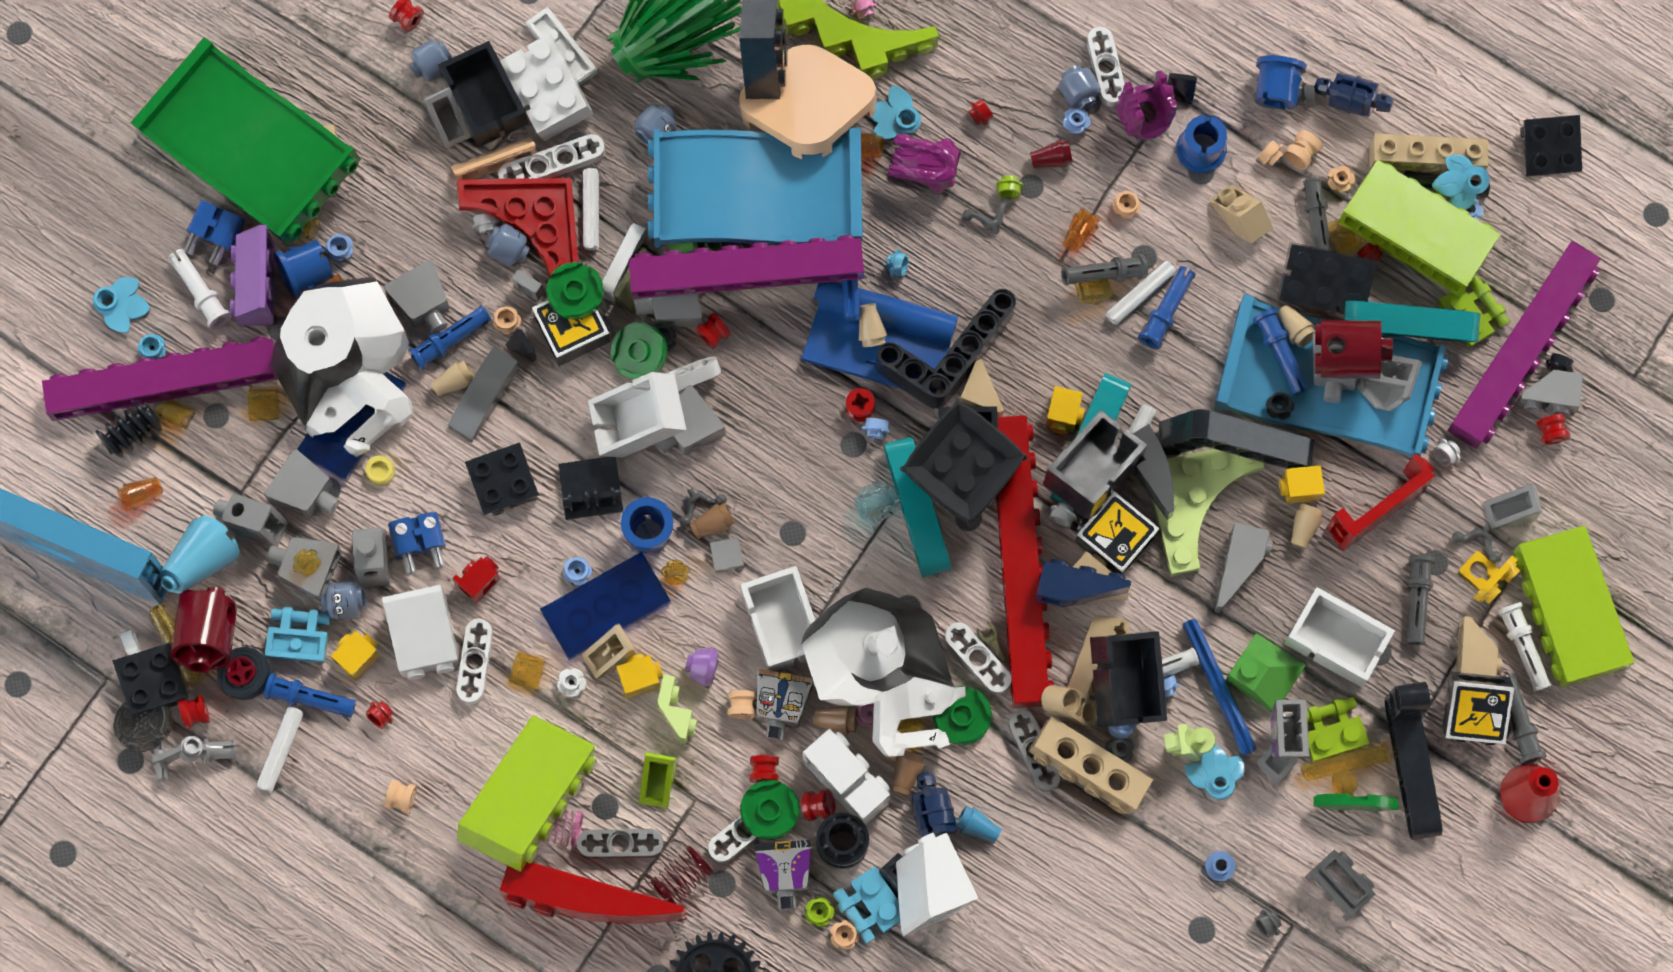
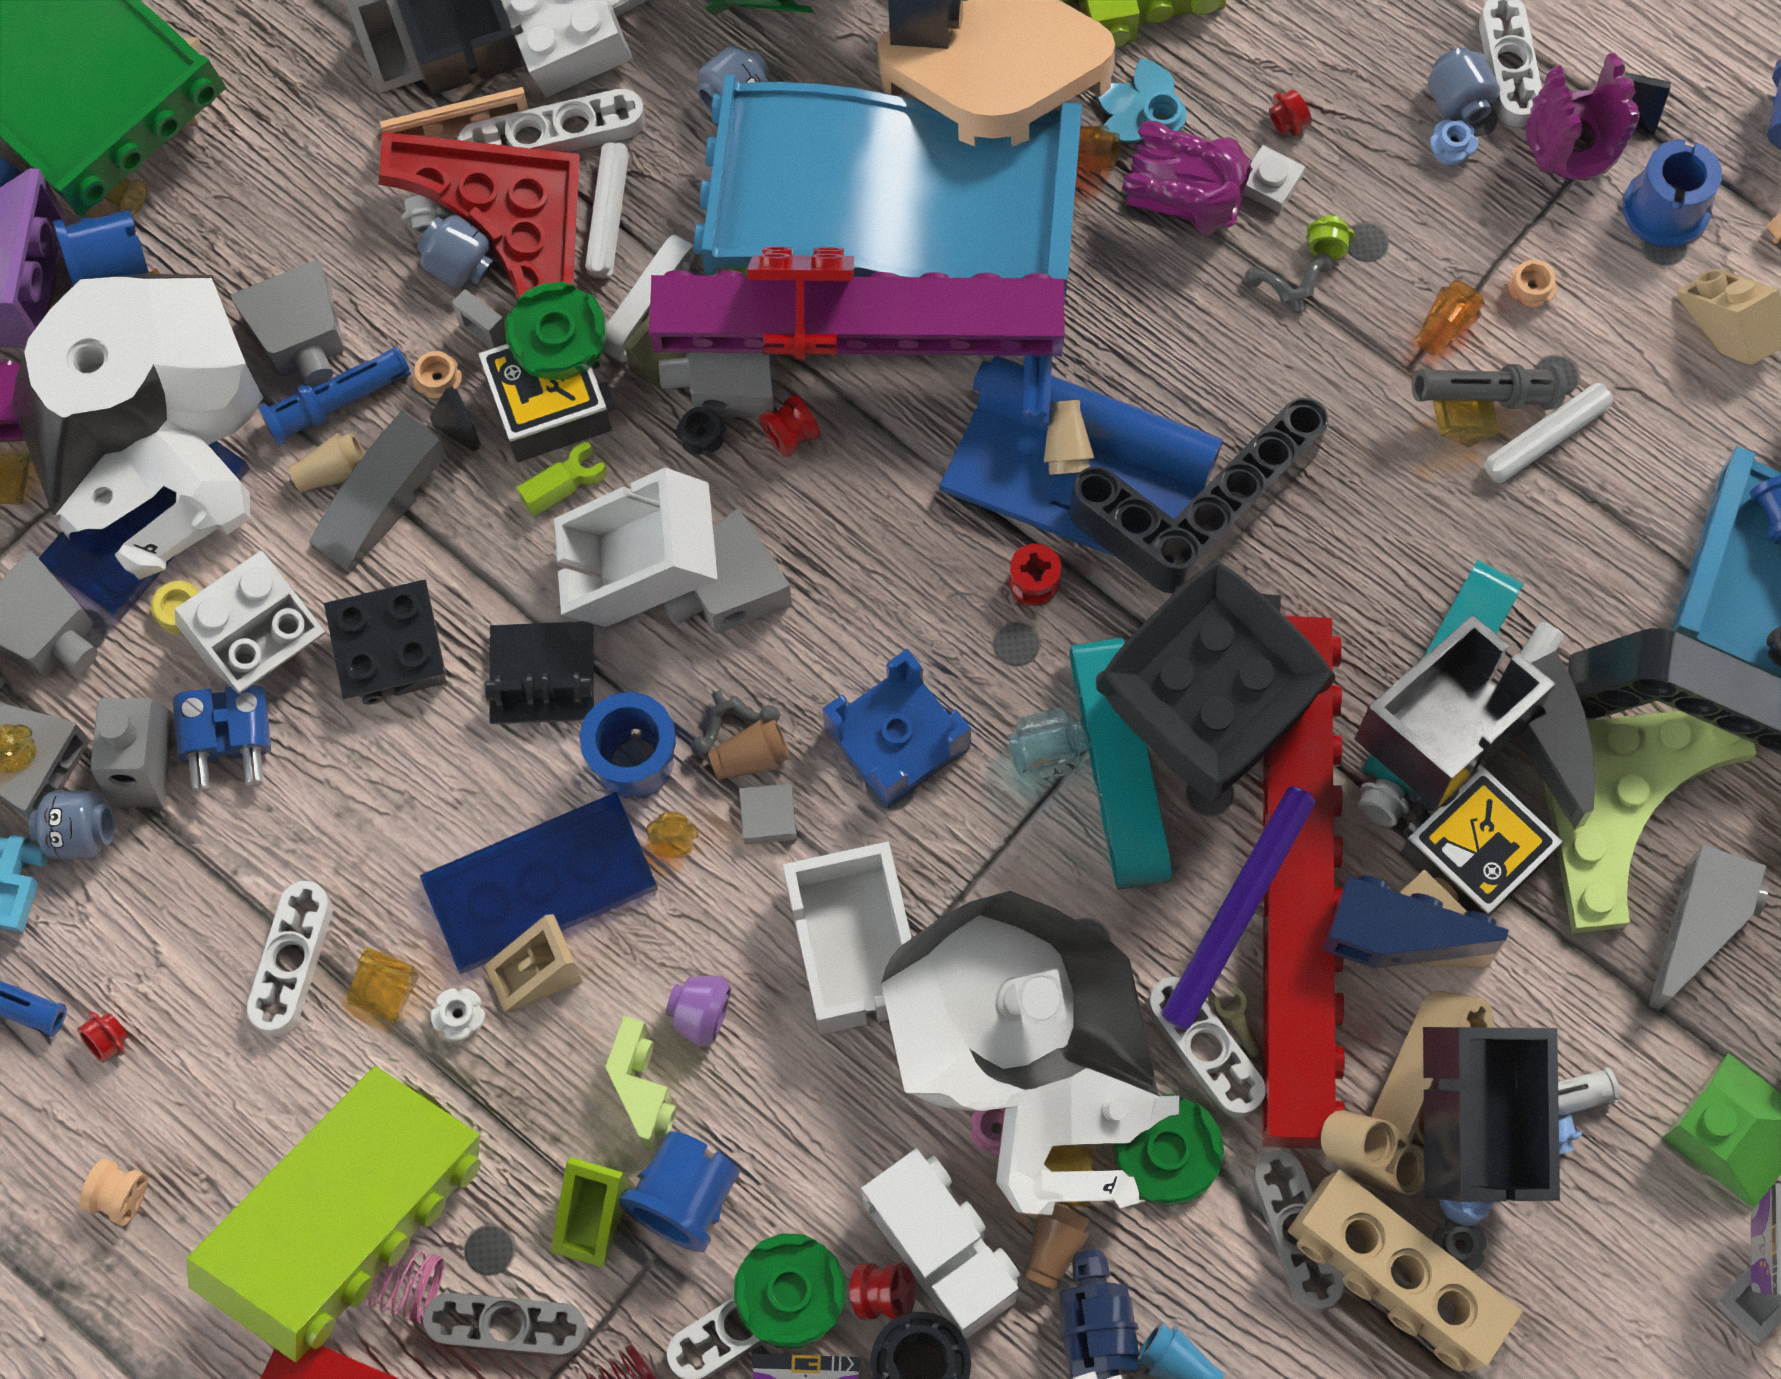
camera: 10 degrees right, 5 degrees down
(339, 240) = (166, 222): light blue plate -> none
(356, 654) = (77, 923): yellow brick -> none
(421, 632) = (198, 892): white slope -> none
(424, 478) = (247, 623): none -> white slope
(478, 578) = (317, 810): red brick -> none
(577, 563) = (490, 803): light blue plate -> none
(585, 376) = (560, 480): none -> lime bar
(638, 350) = (656, 436): green tile -> none
(639, 675) = (581, 1013): yellow brick -> none
(696, 372) = (751, 492): white beam -> none
(703, 247) = (781, 264): none -> red plate
(706, 764) = (681, 1191): none -> blue piece
(742, 704) = (763, 1086): light nougat wheel -> none
(763, 768) = (789, 1210): red wheel -> none
(781, 701) = (835, 1088): torso -> none
(792, 502) = (897, 731): none -> blue panel
(837, 719) = (935, 1132): medium nougat cone -> none
(876, 428) = (1059, 617): light blue plate -> none
(897, 263) = (1124, 344): medium azure plate -> none
(974, 153) = (1273, 178): none -> white plate
(980, 390) = (1255, 562): tan slope -> none
(988, 582) = (1238, 908): none -> dark purple axle
(1052, 155) = (1409, 192): dark red cone -> none
(1064, 410) = (1400, 618): yellow brick -> none
(1162, 317) = (1584, 478): blue pin -> none
(1189, 742) = (1598, 1245): yellowish green hips -> none
(1213, 768) = (1638, 1301): medium azure plate -> none
(1219, 687) = (1655, 1149): blue axle -> none

